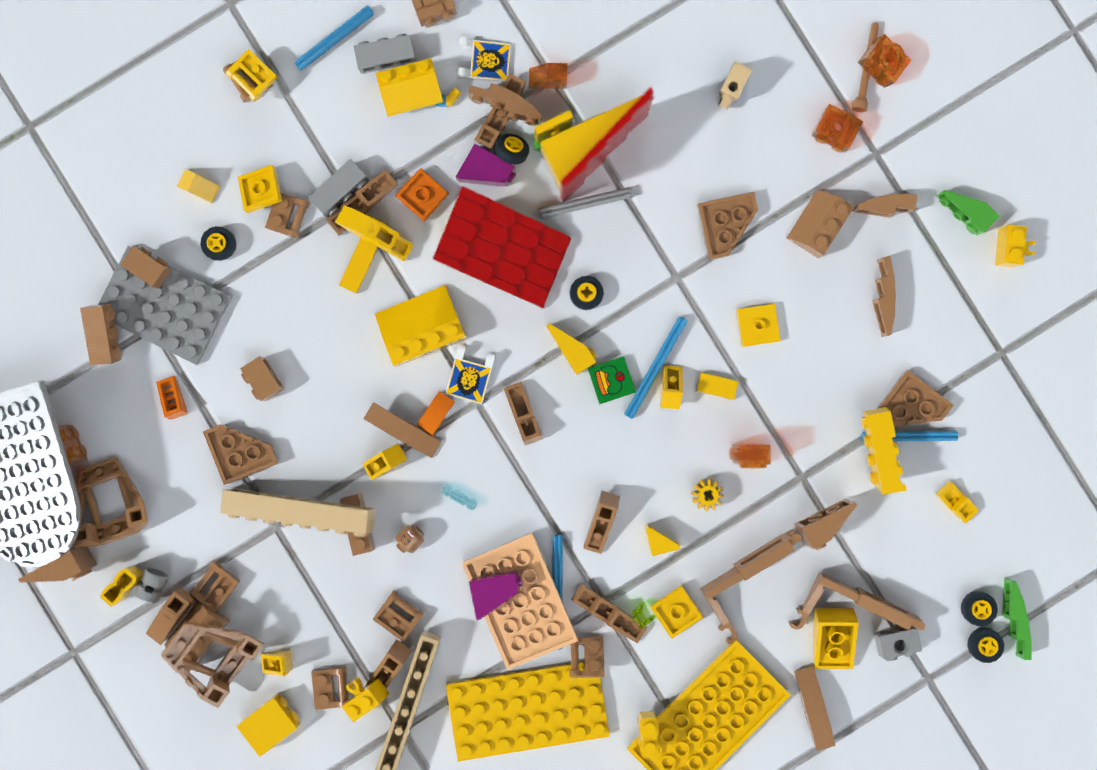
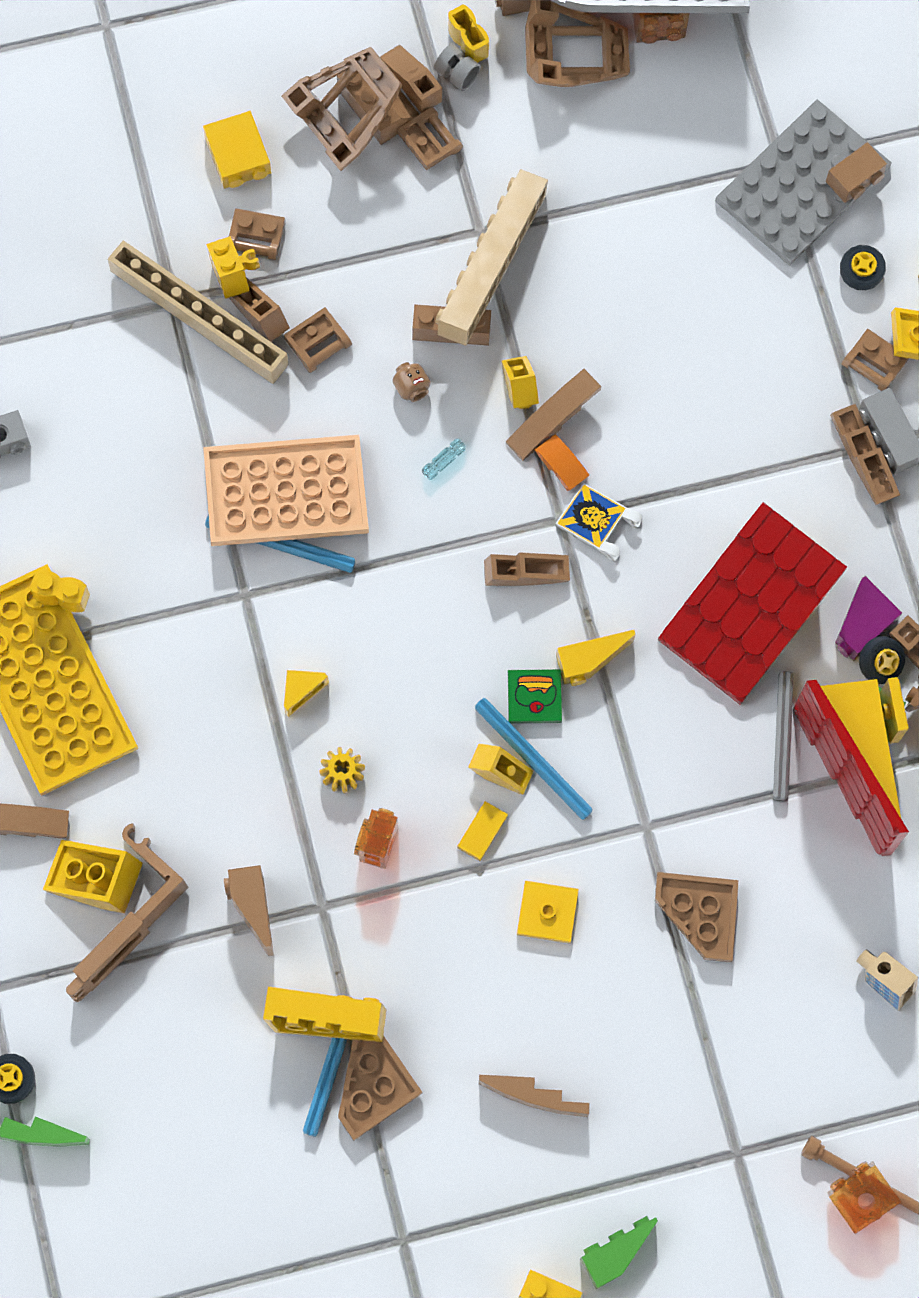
camera: 110 degrees right, 15 degrees down
(101, 334) = (787, 98): medium nougat brick -> none
(180, 406) = (664, 164): orange slope -> none
(238, 453) = (588, 213): medium nougat plate -> none
(261, 378) = (673, 267): medium nougat brick -> none
(277, 662) = (309, 183): yellow slope -> none
(359, 264) = (796, 437): yellow tile -> none
(374, 232) = (819, 454): yellow slope -> none
(419, 326) = (681, 477): yellow slope -> none
(422, 194) = (853, 531): orange plate -> none
(493, 590) = (310, 456): magenta slope -> none
(525, 711) = (141, 461): yellow plate -> none
(591, 293) = (658, 708): black wheel -> none
(592, 658) = (180, 557): medium nougat plate -> none
(601, 522) = (353, 623): medium nougat slope -> none
(608, 613) = (229, 598): medium nougat slope -> none
(637, 611) = (203, 640): clear neon green piece -> none
(676, 611) = (201, 682): yellow plate -> none
(745, 569) = (225, 781): medium nougat hinge -> none
(820, 223) = (662, 1038): medium nougat slope -> none
(826, 133) = (787, 1086): clear orange brick -> none
(886, 642) = (56, 941): light grey brick -> none
(887, 205) = (661, 1139): medium nougat slope -> none
(957, 502) = (217, 1104): yellow slope -> none
(986, 609) = (59, 1076): black wheel -> none

